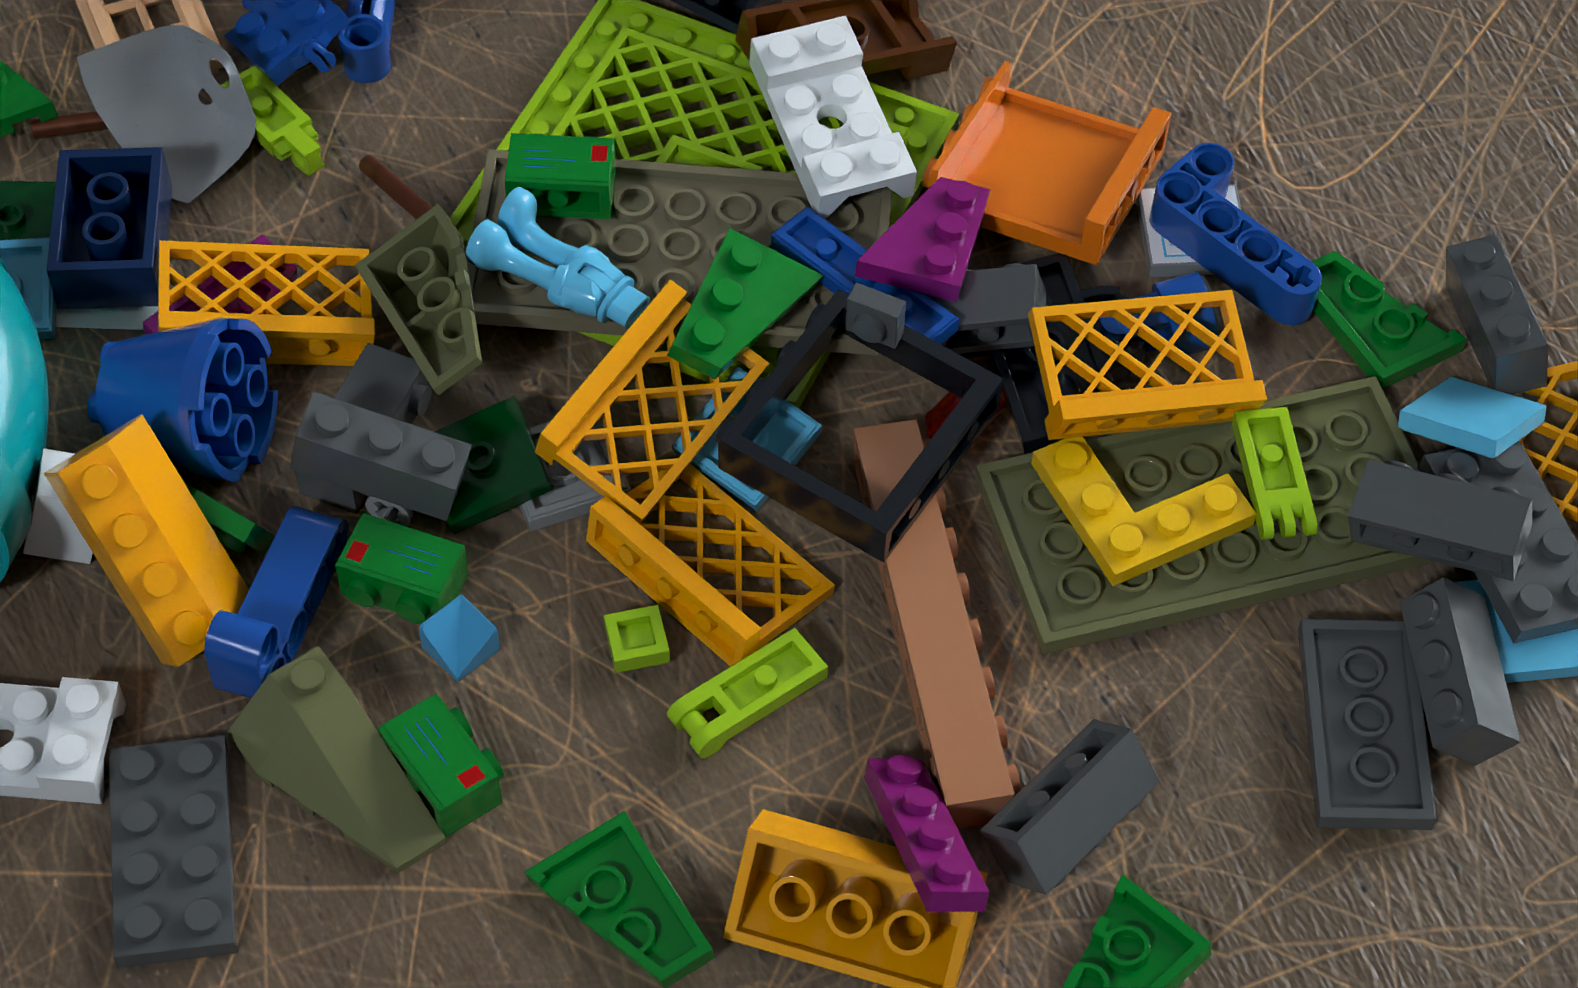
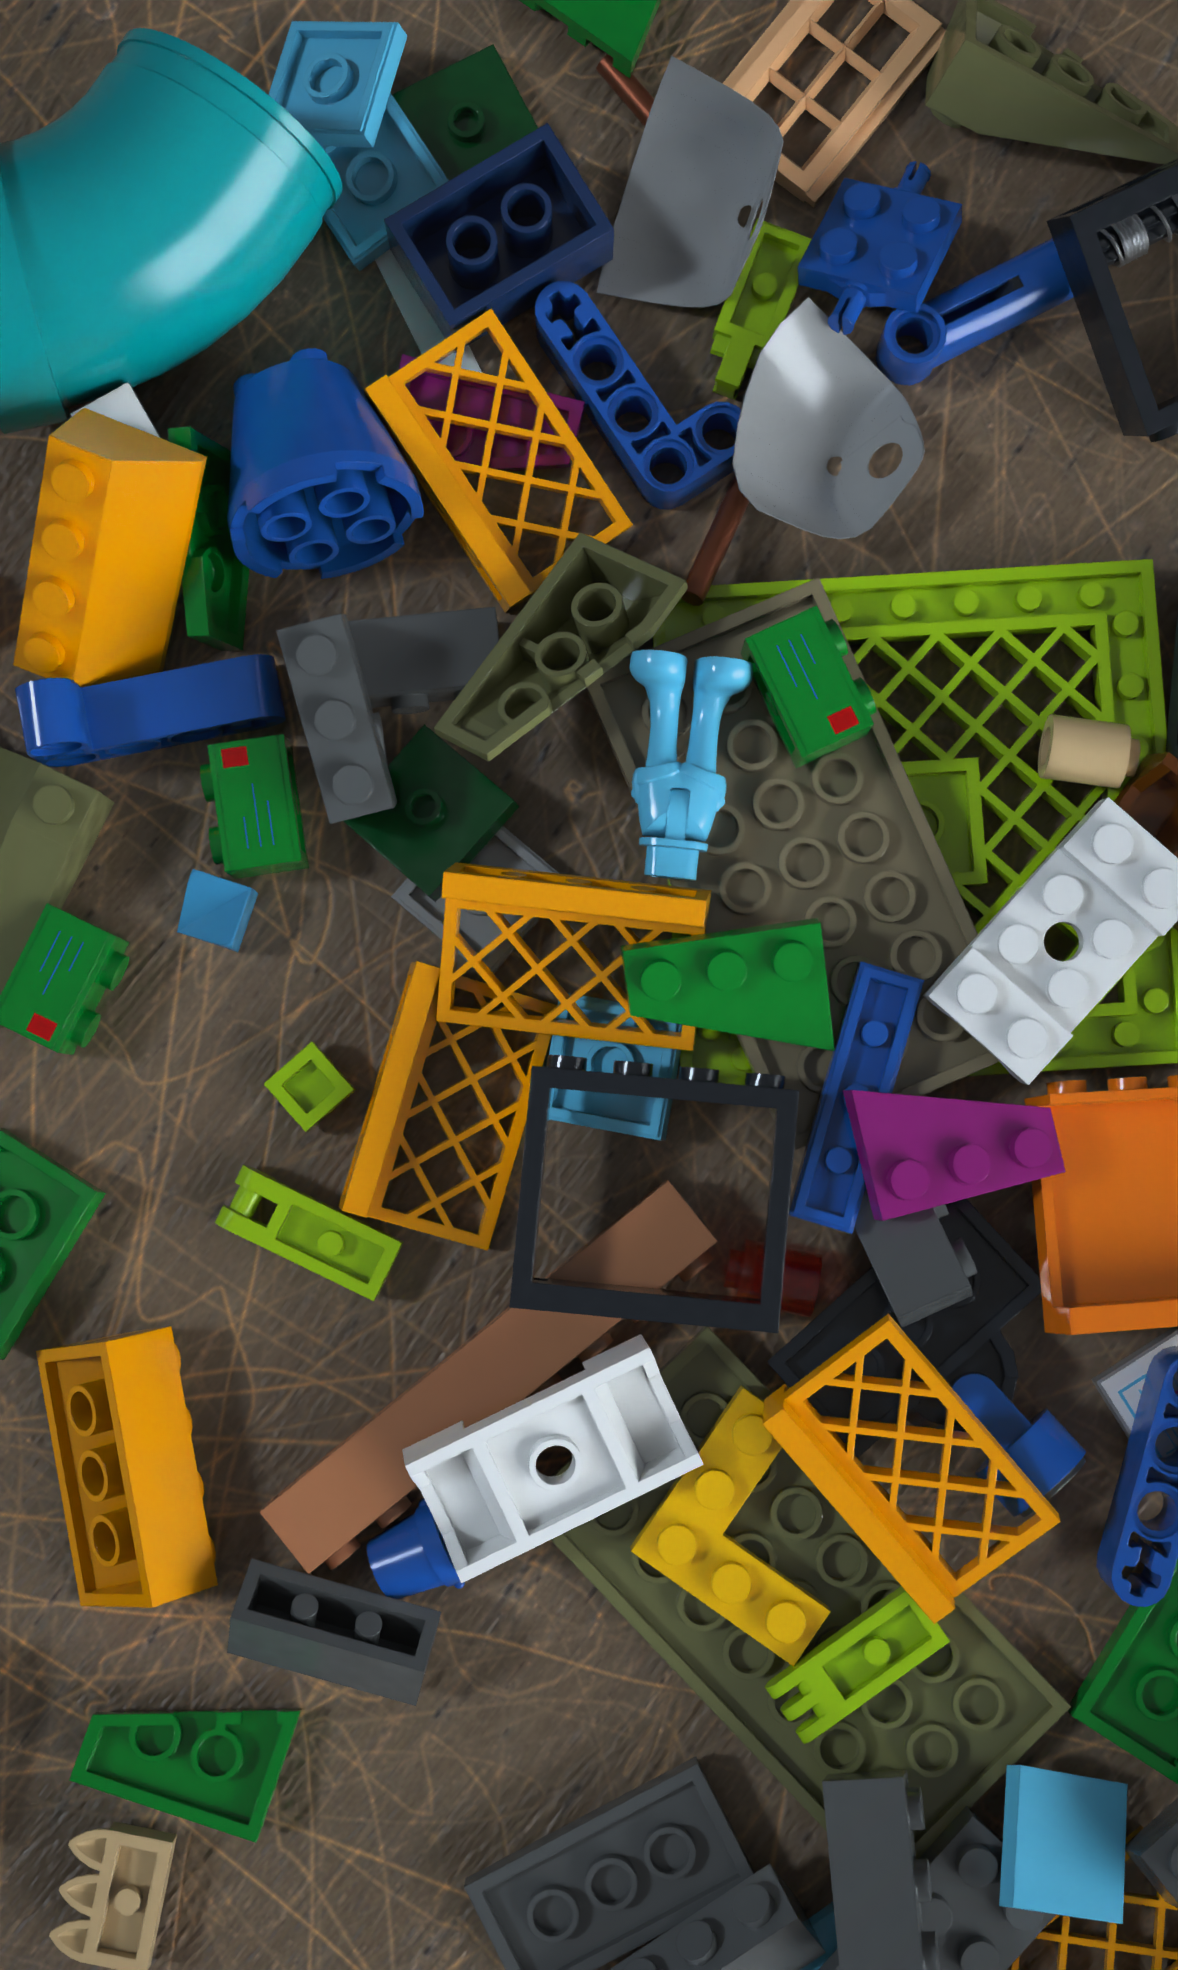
camera: 60 degrees right, 30 degrees up
(298, 215) = (630, 392): none -> blue beam
(378, 109) = (814, 402): none -> light grey piece
(710, 66) = (1087, 751): none -> tan brick
(875, 316) = (761, 1161): dark grey plate -> none
(926, 835) = (205, 1514): magenta plate -> none
(1007, 624) = (486, 1478): none -> white piece
(1039, 723) = (411, 1556): none -> blue piece

